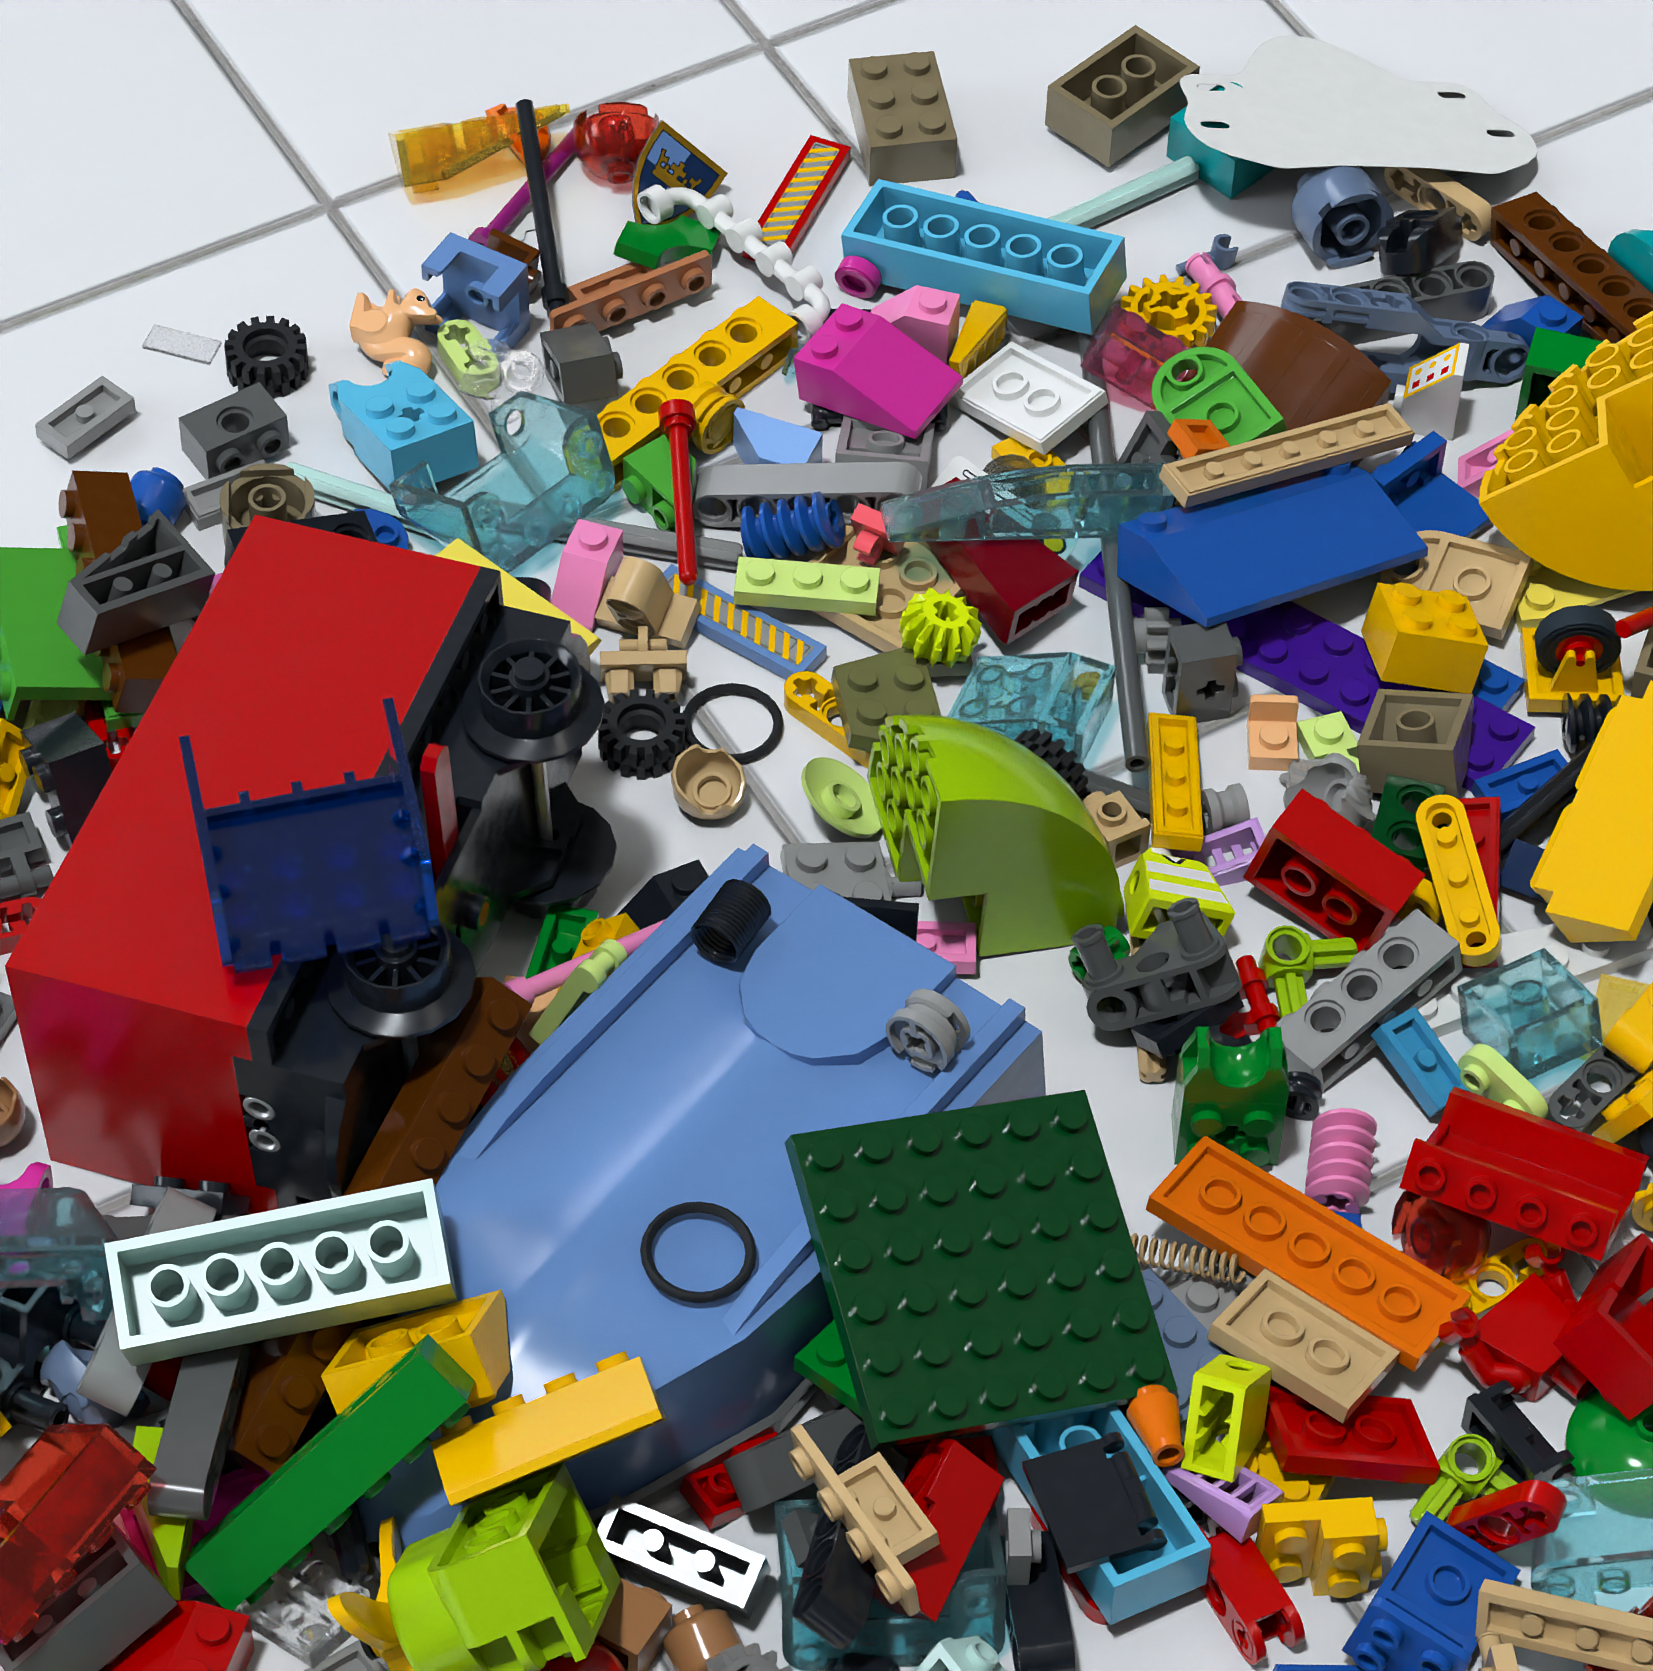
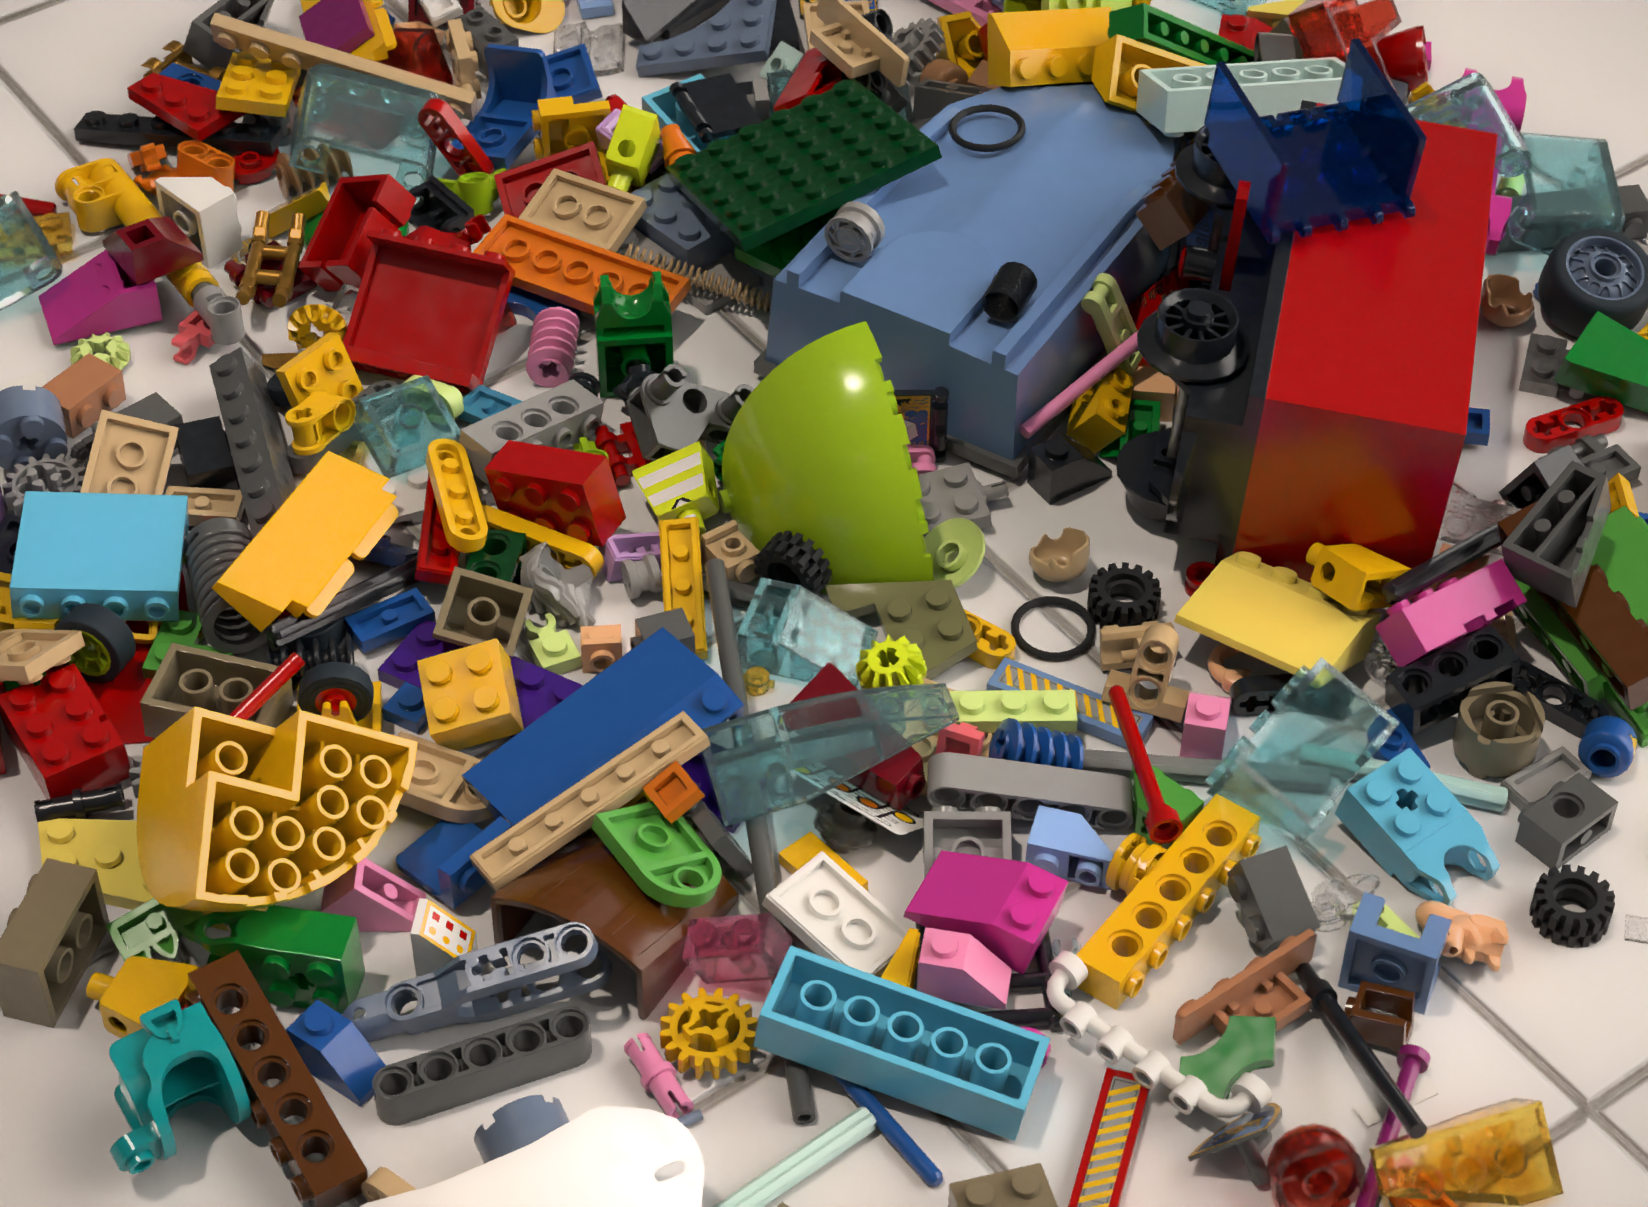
camera: 175 degrees right, 5 degrees down
(1418, 240) = (424, 1161): black piece -> none

